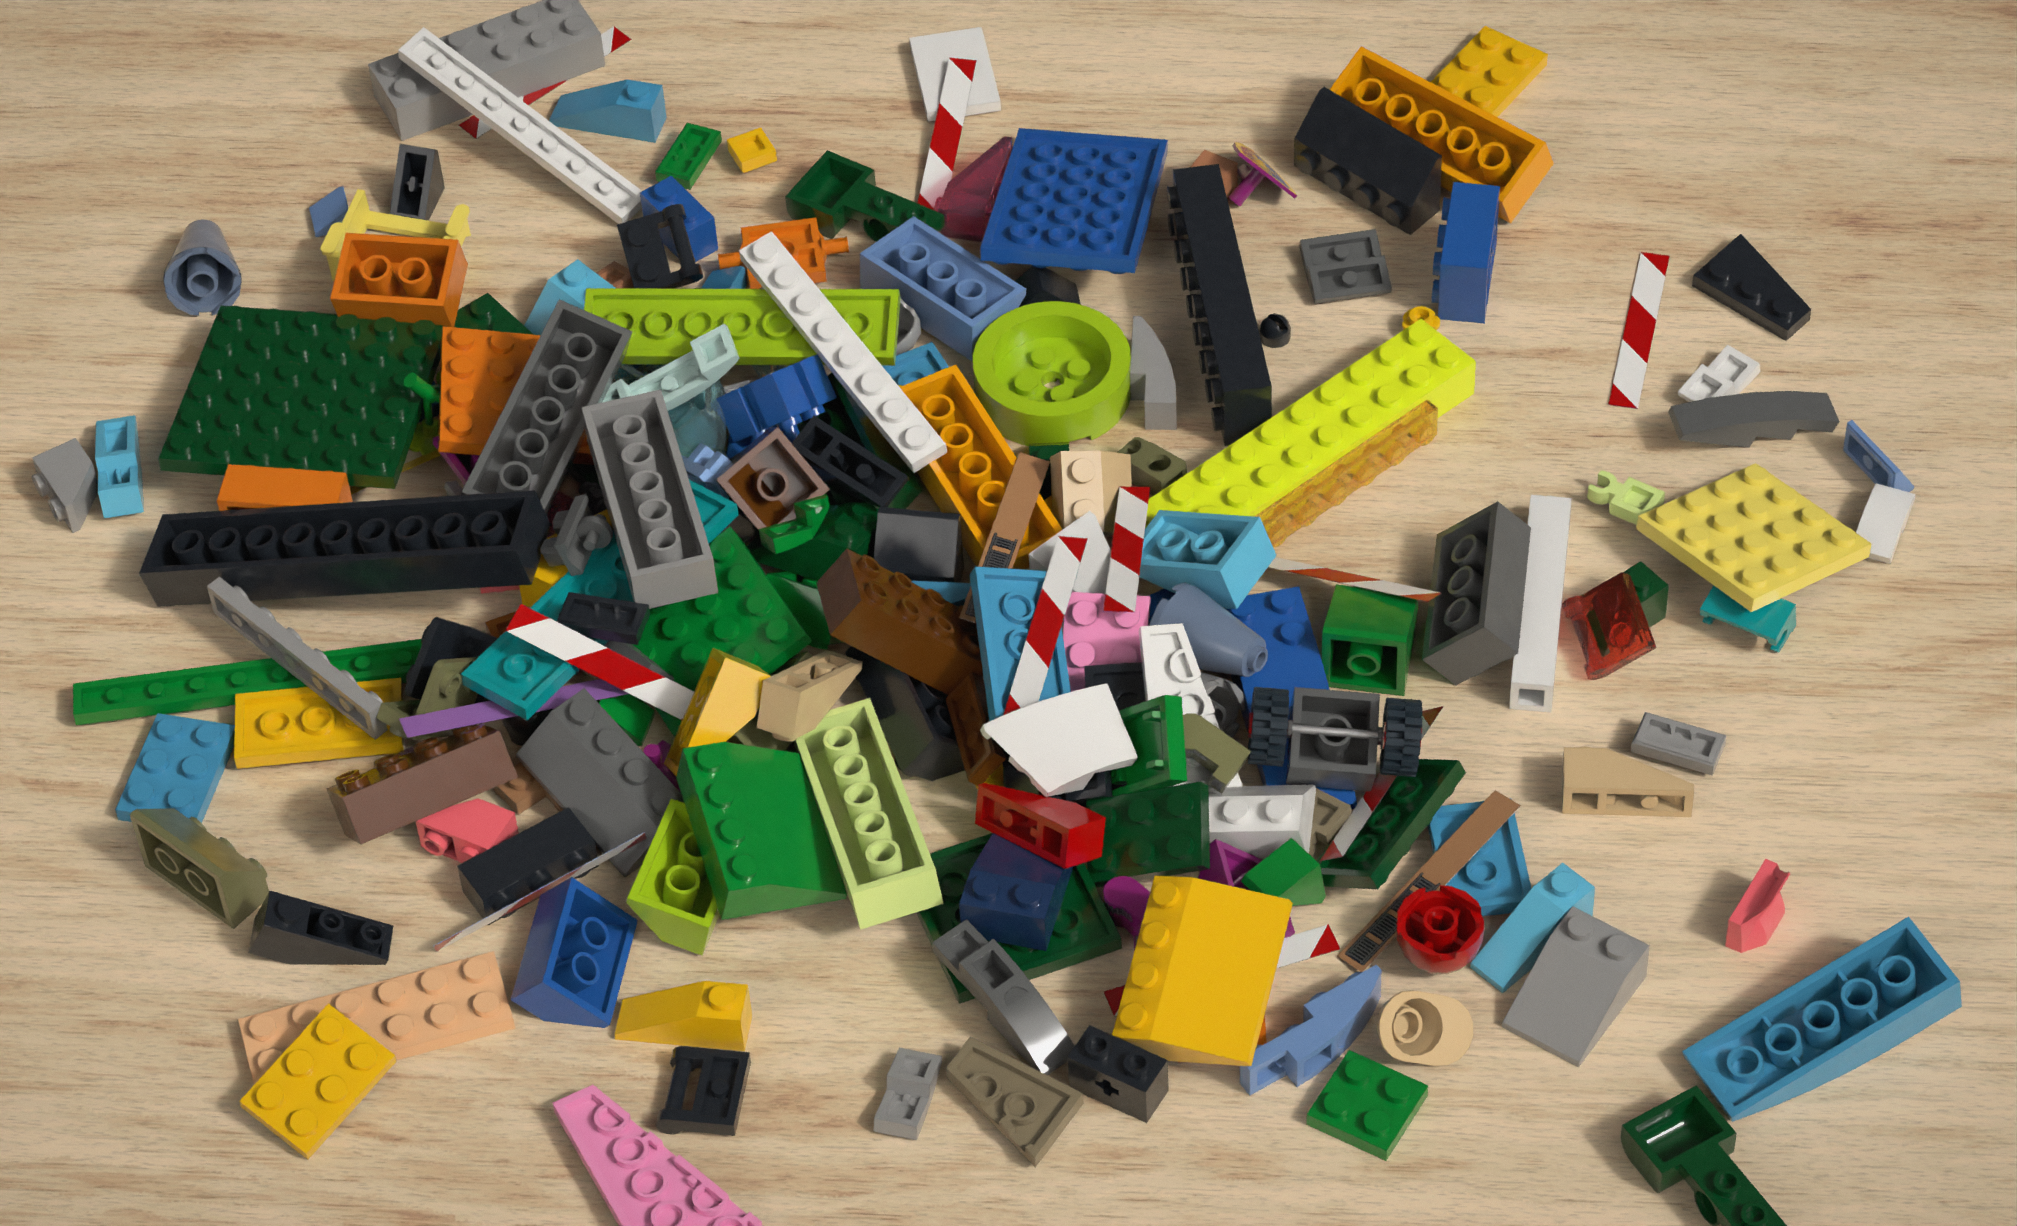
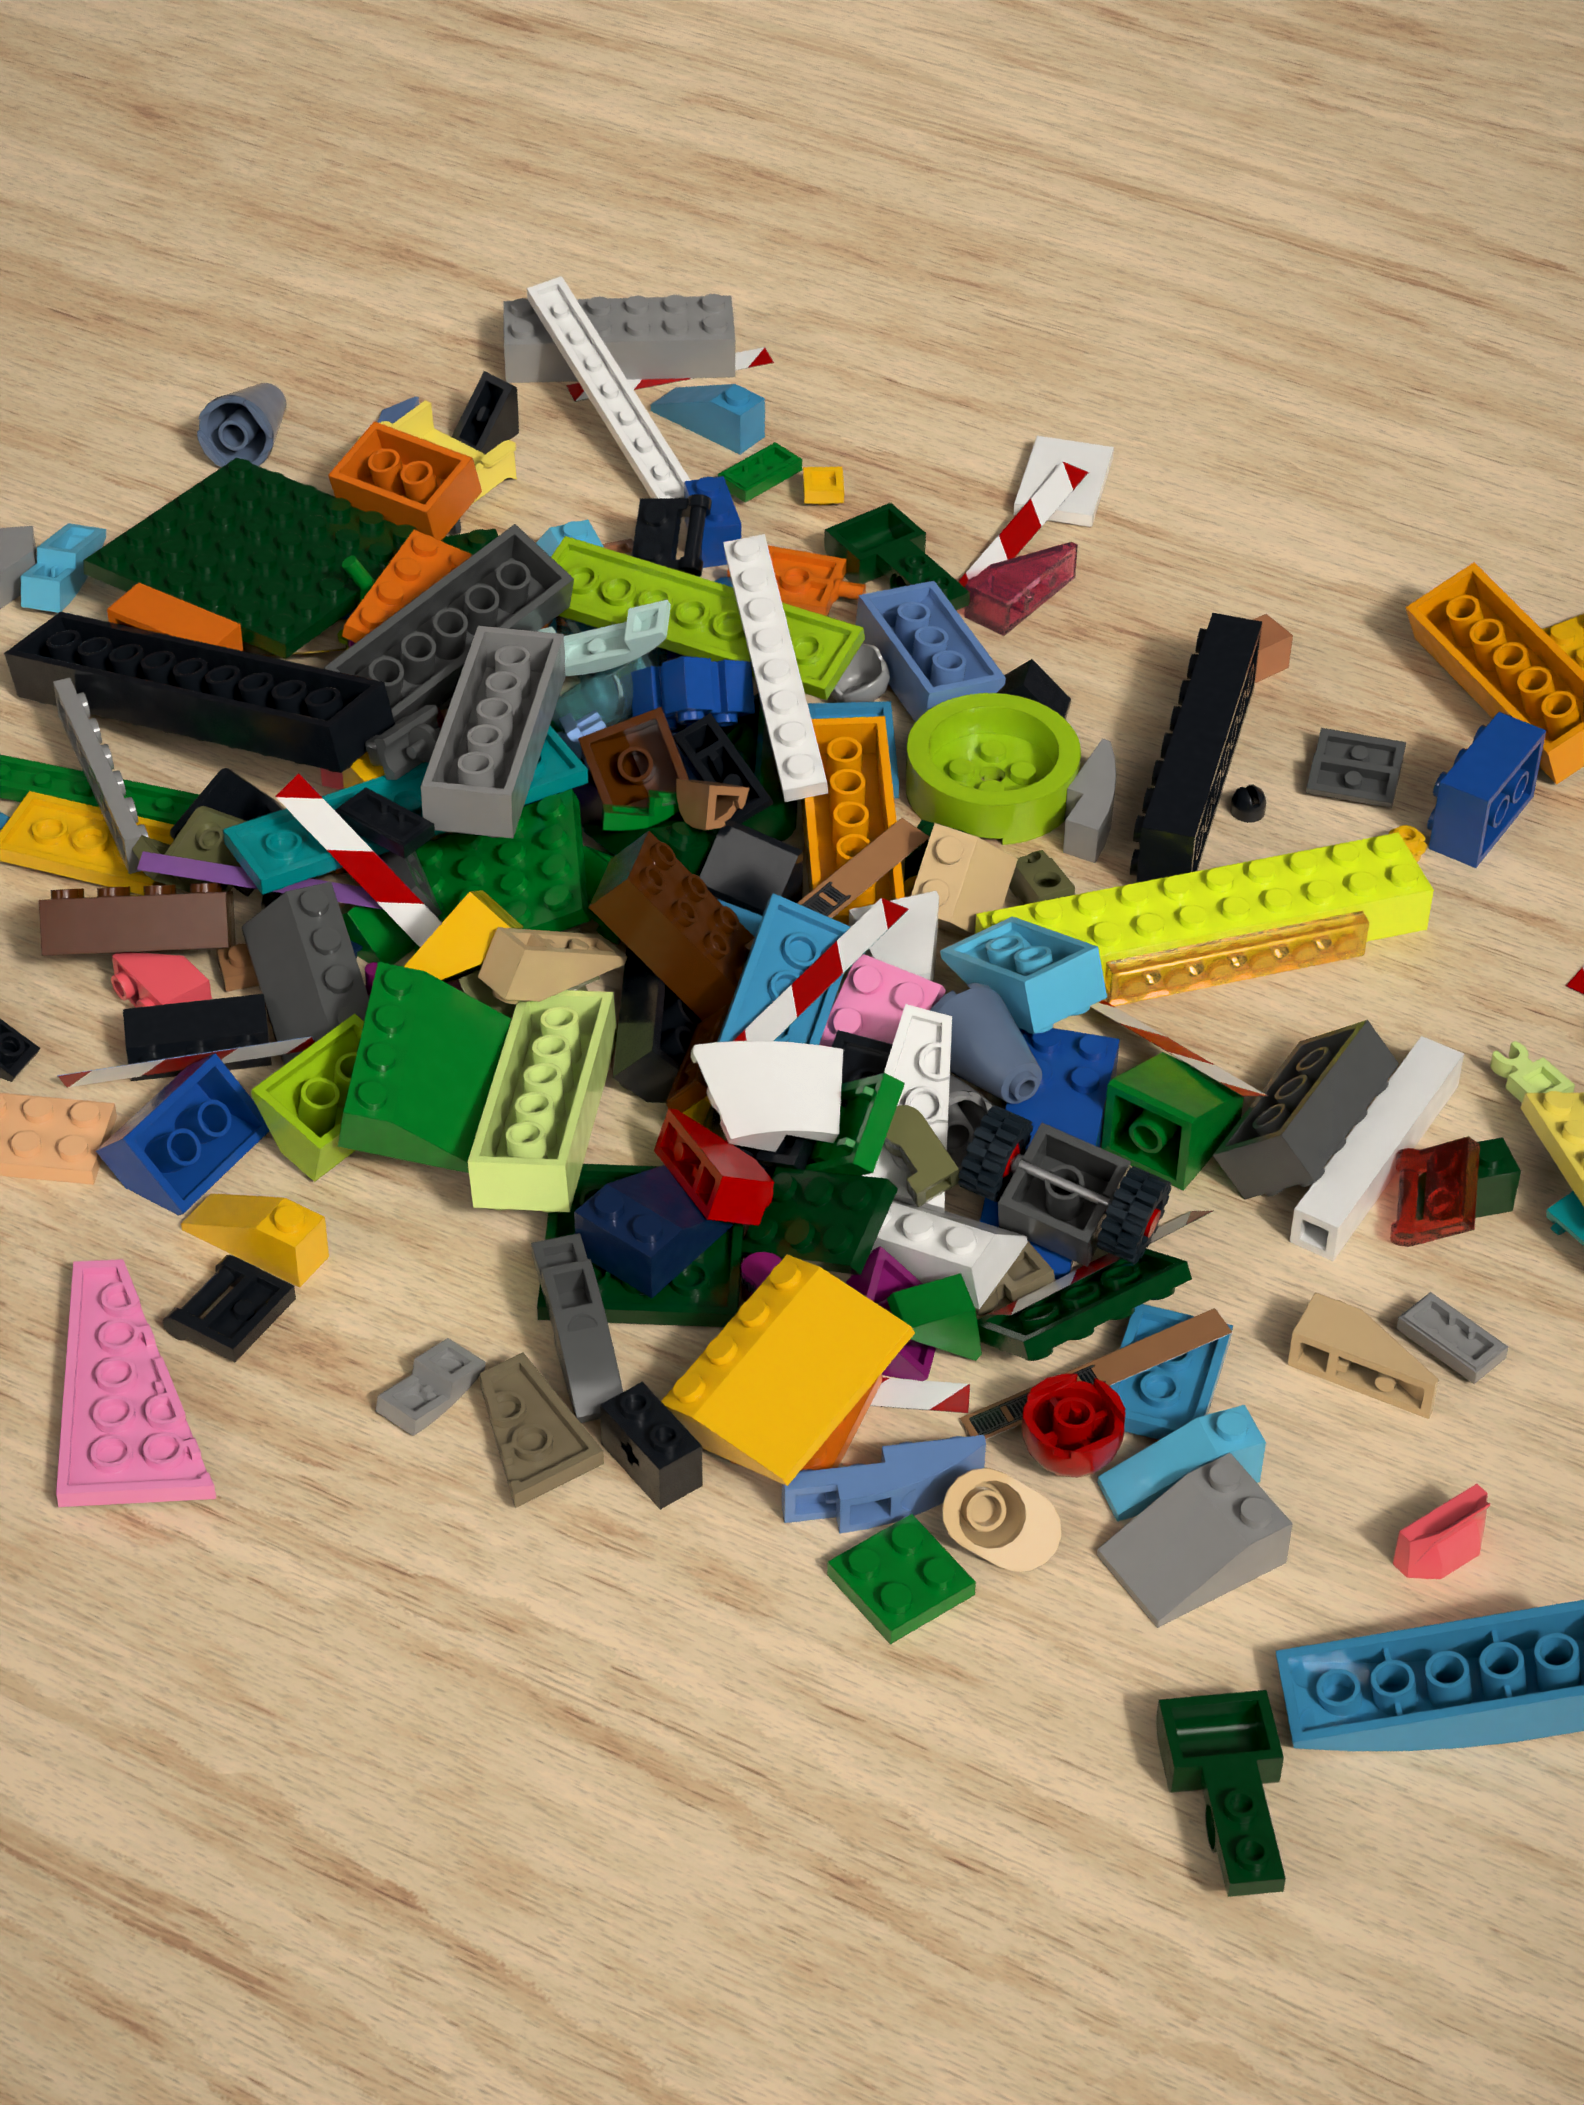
camera: 20 degrees right, 5 degrees down
(857, 498) = (707, 803): none -> medium nougat brick
(1075, 201) = (1105, 619): blue plate -> none
(1126, 549) = (950, 938): sticker -> none
(1253, 176) = (1314, 649): magenta shield -> none
(1369, 162) = (1429, 674): black slope -> none

